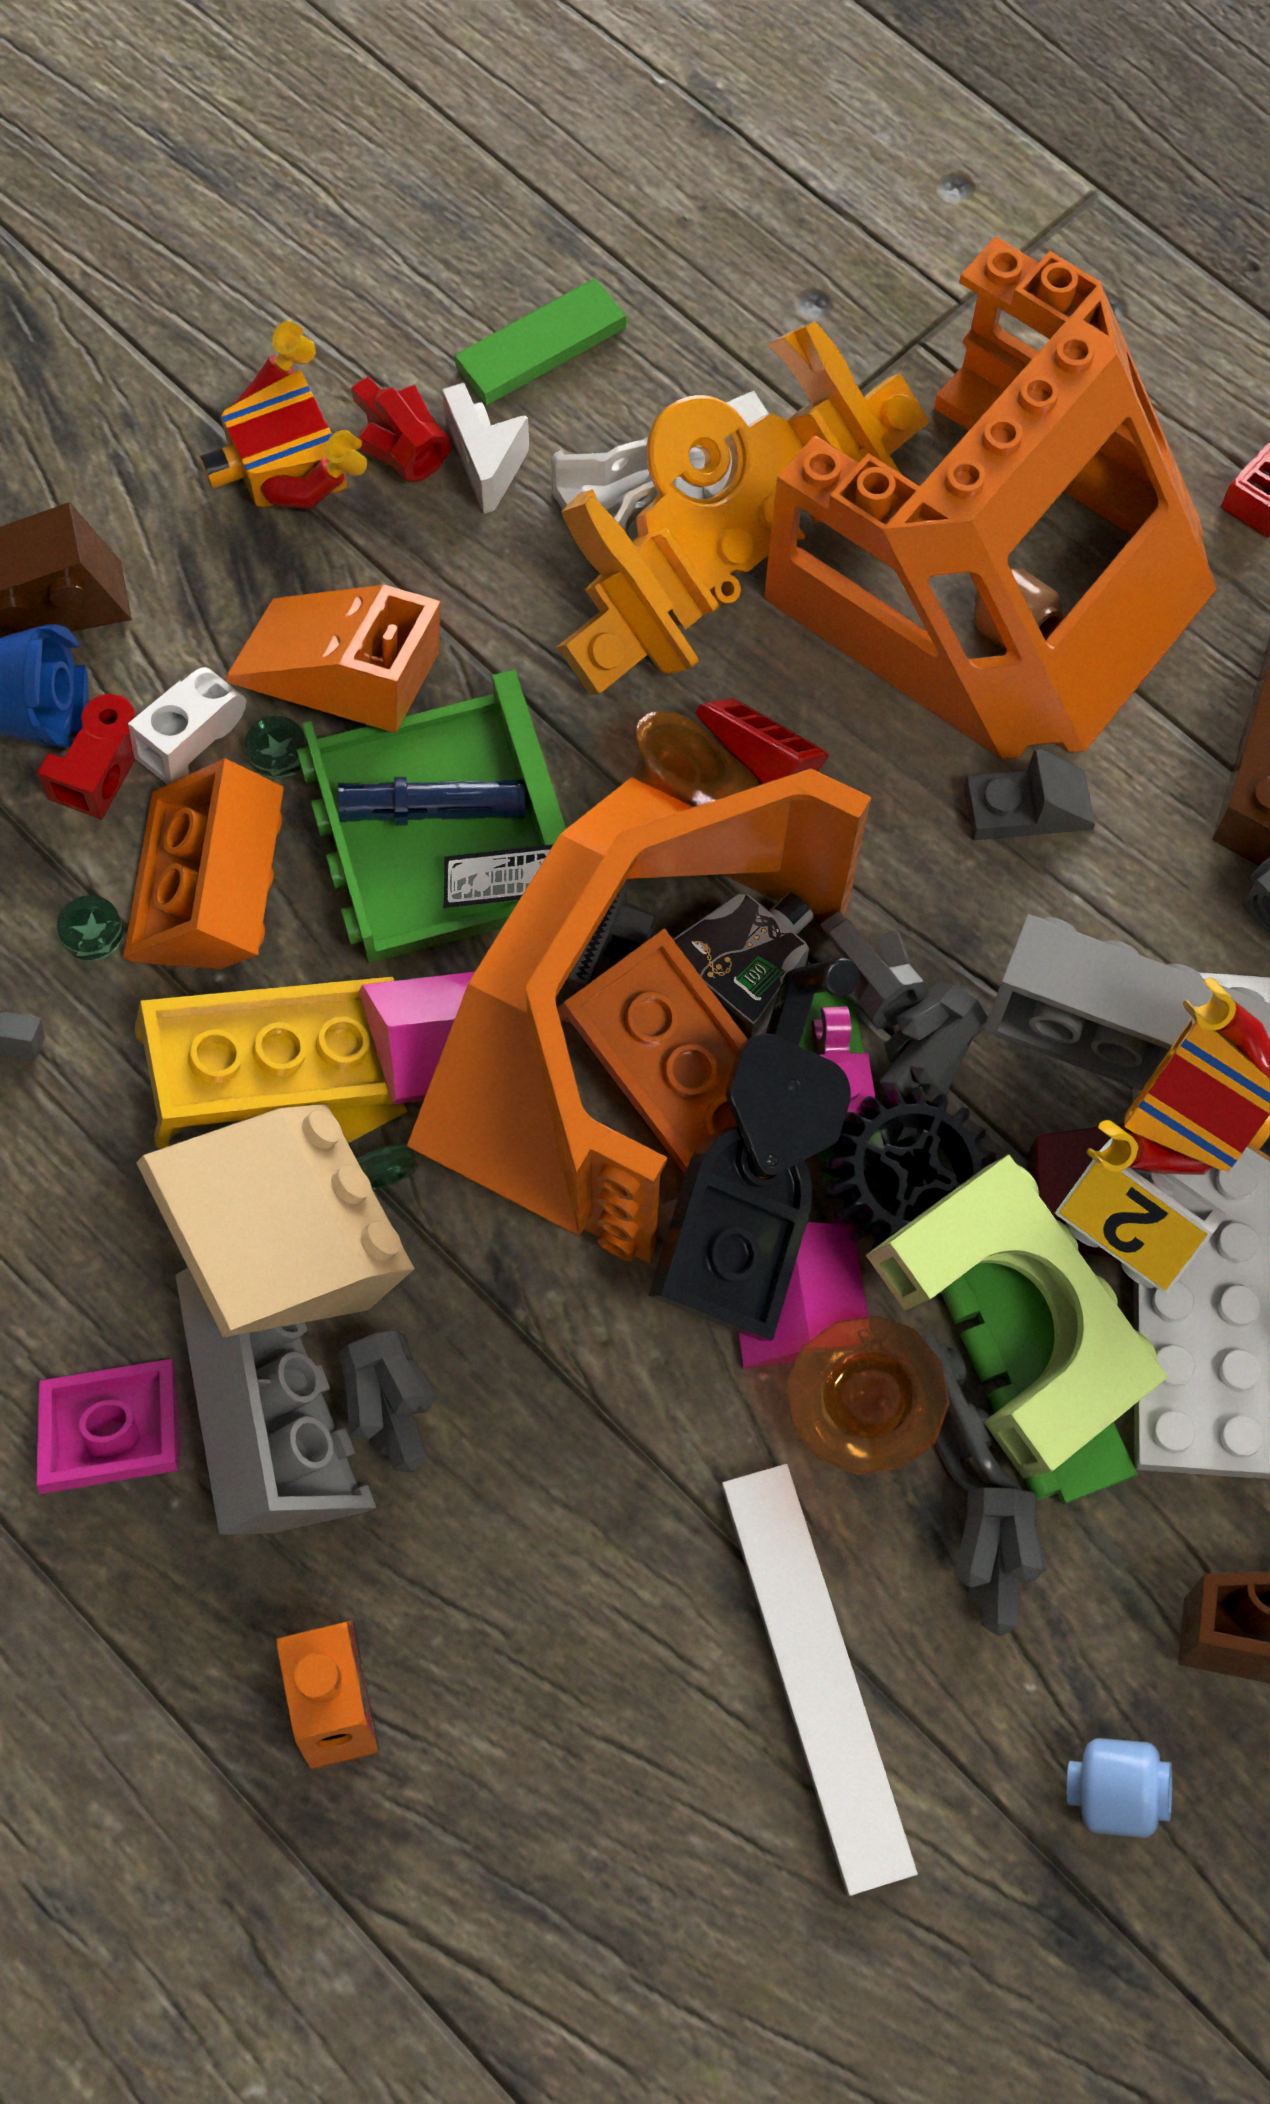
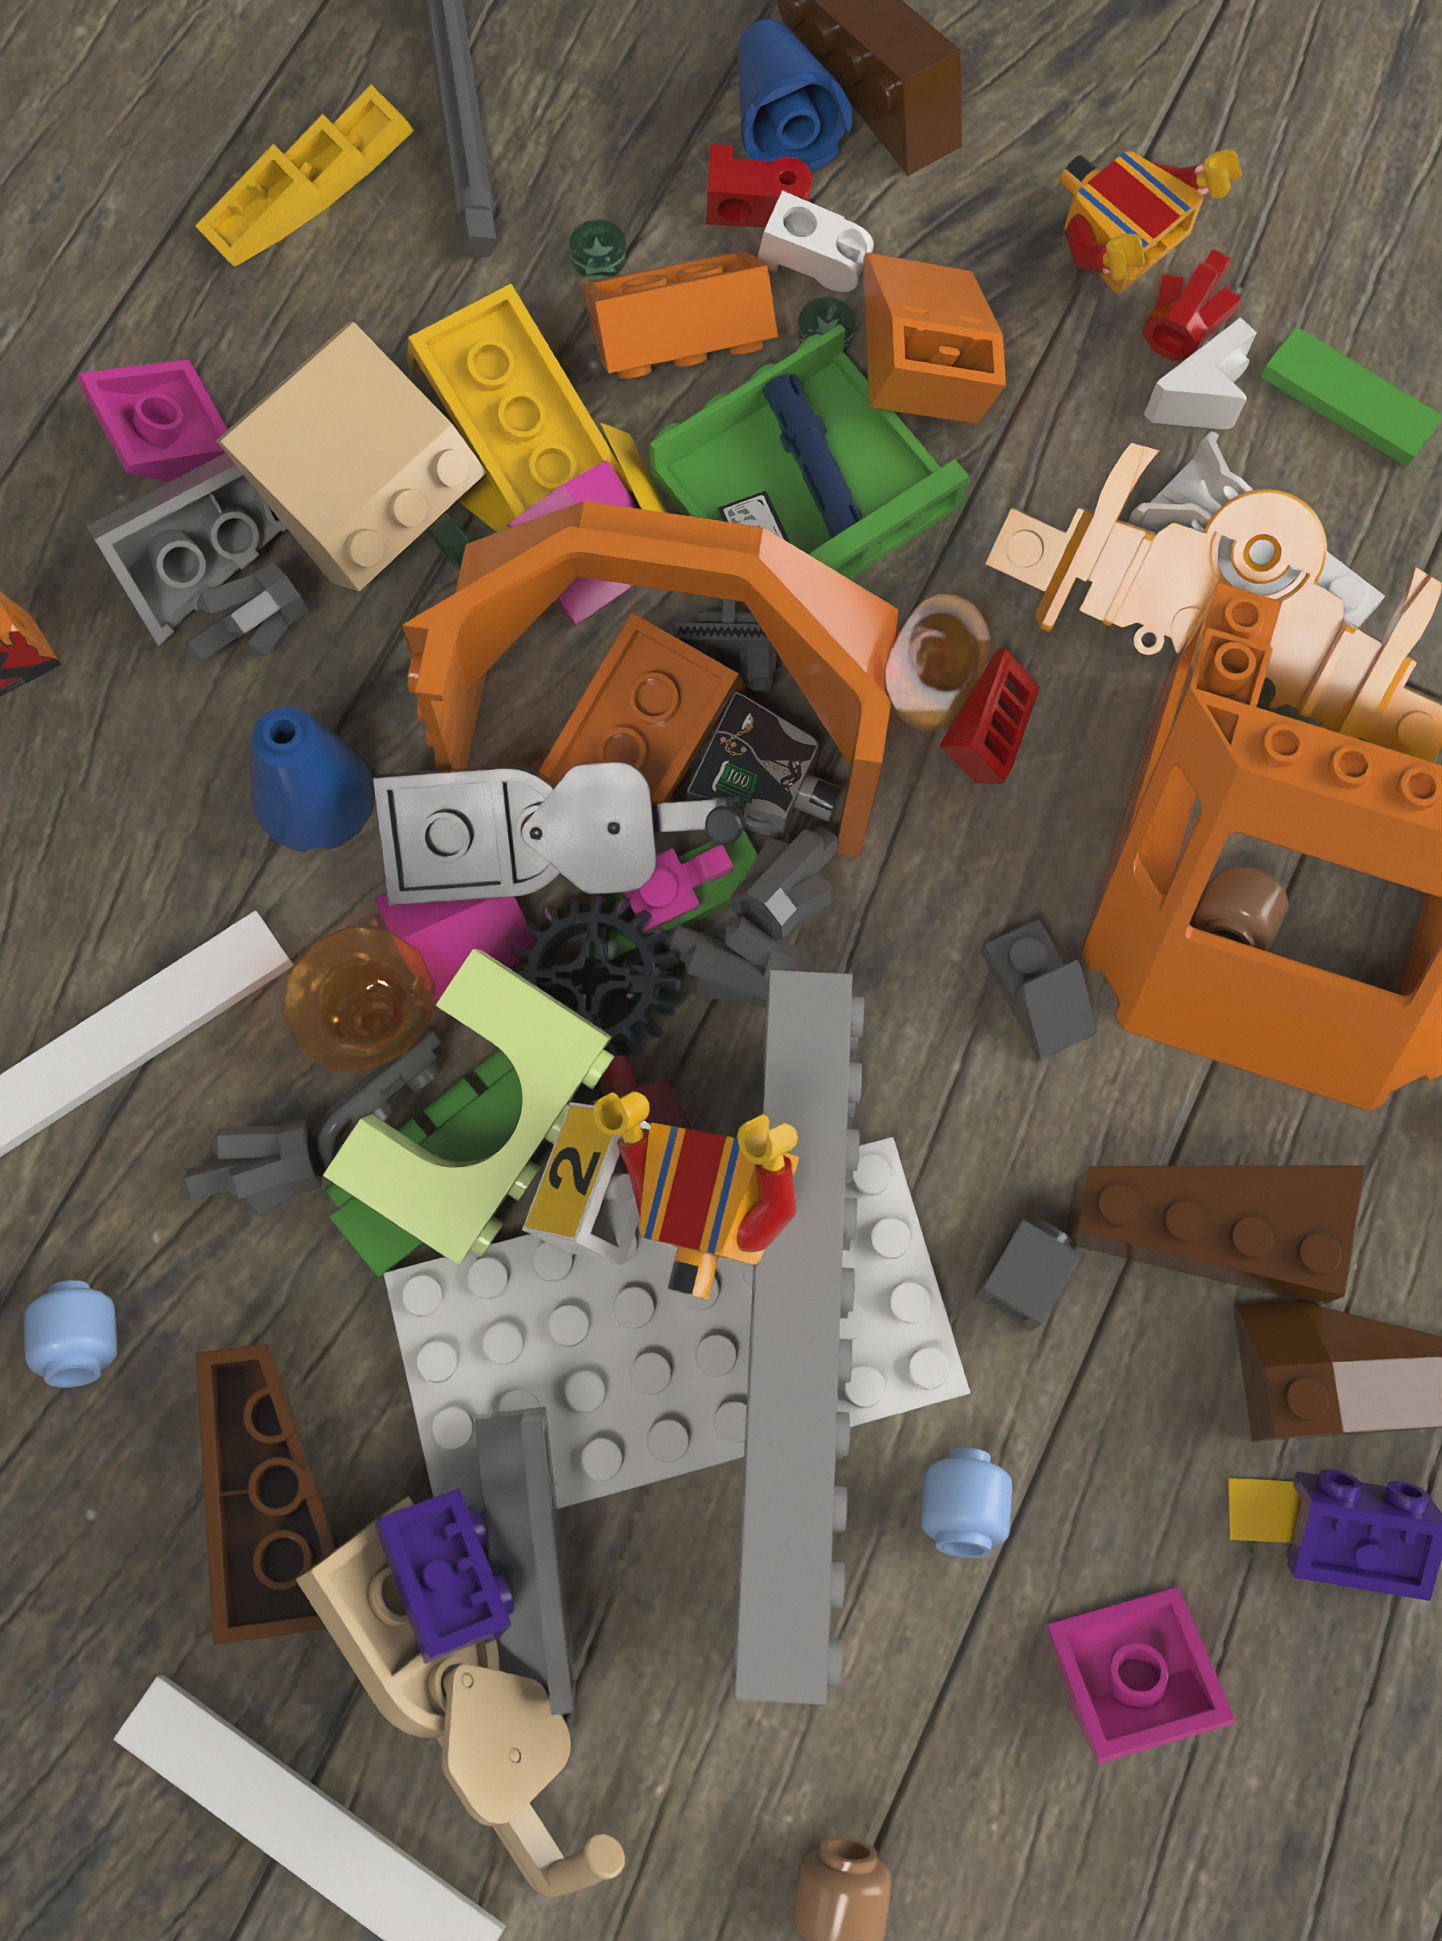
camera: 70 degrees right, 5 degrees up
(372, 970) = (634, 469): none -> yellow sticker
(603, 1393) = (307, 782): none -> blue cone

